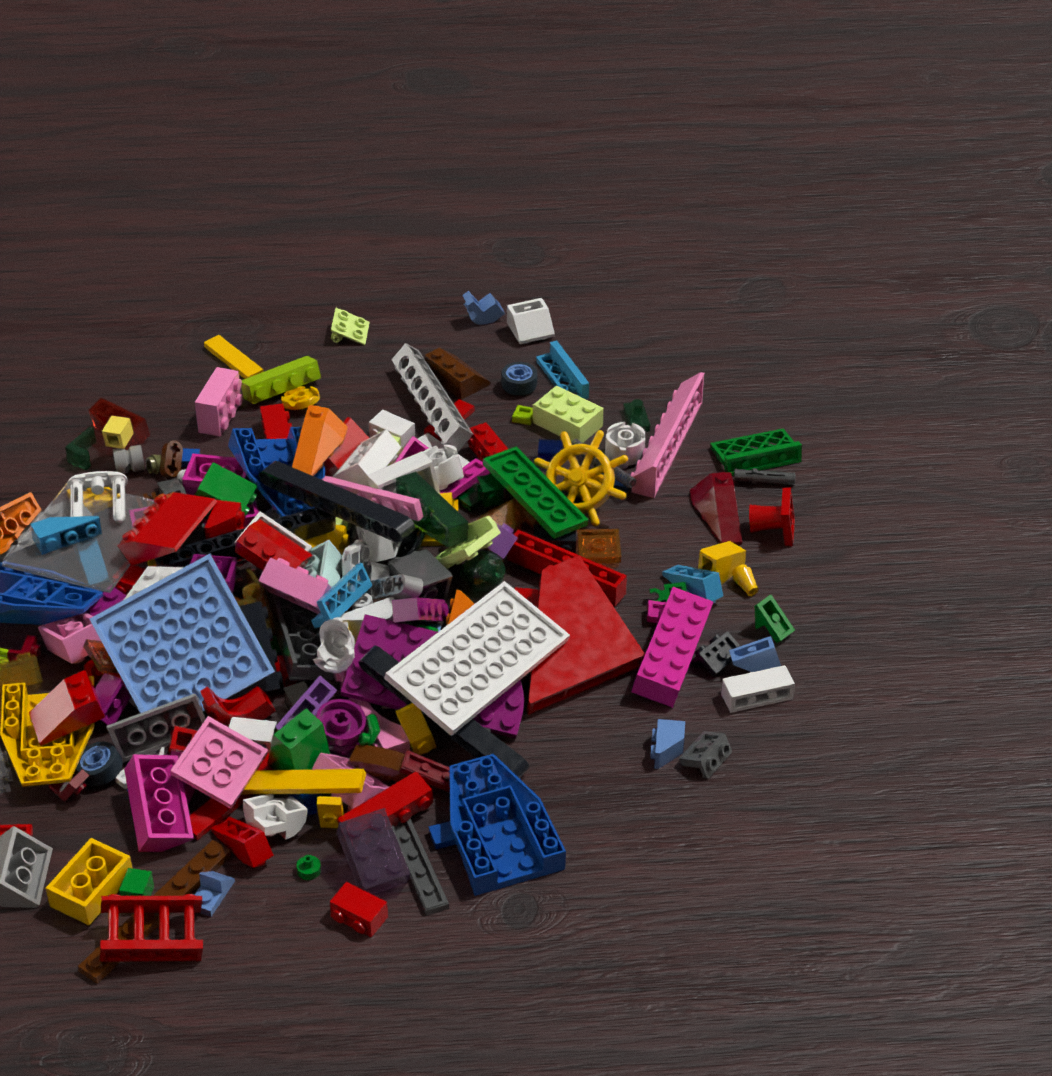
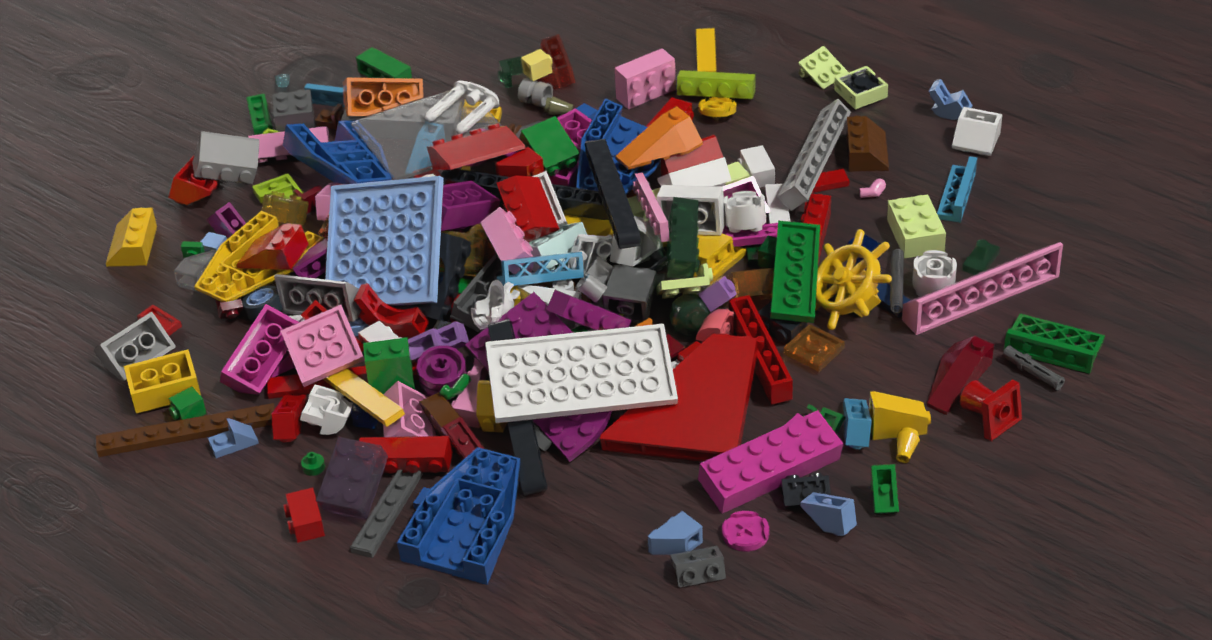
camera: 45 degrees right, 0 degrees up
(64, 531) = (408, 118): dark azure slope -> none
(151, 950) = (152, 457): red fence -> none
(171, 459) = (559, 104): reddish brown beam -> none
(329, 810) = (359, 425): yellow plate -> none
(400, 327) = (861, 87): none -> yellowish green piece
(501, 404) = (874, 190): none -> bright pink arm
(519, 378) = (912, 175): black wheel -> none
(520, 569) = (716, 323): none -> coral brick
(523, 415) = (880, 208): lime tile -> none
(706, 709) = (745, 531): none -> dark pink tile
(757, 688) = (803, 539): white brick -> none

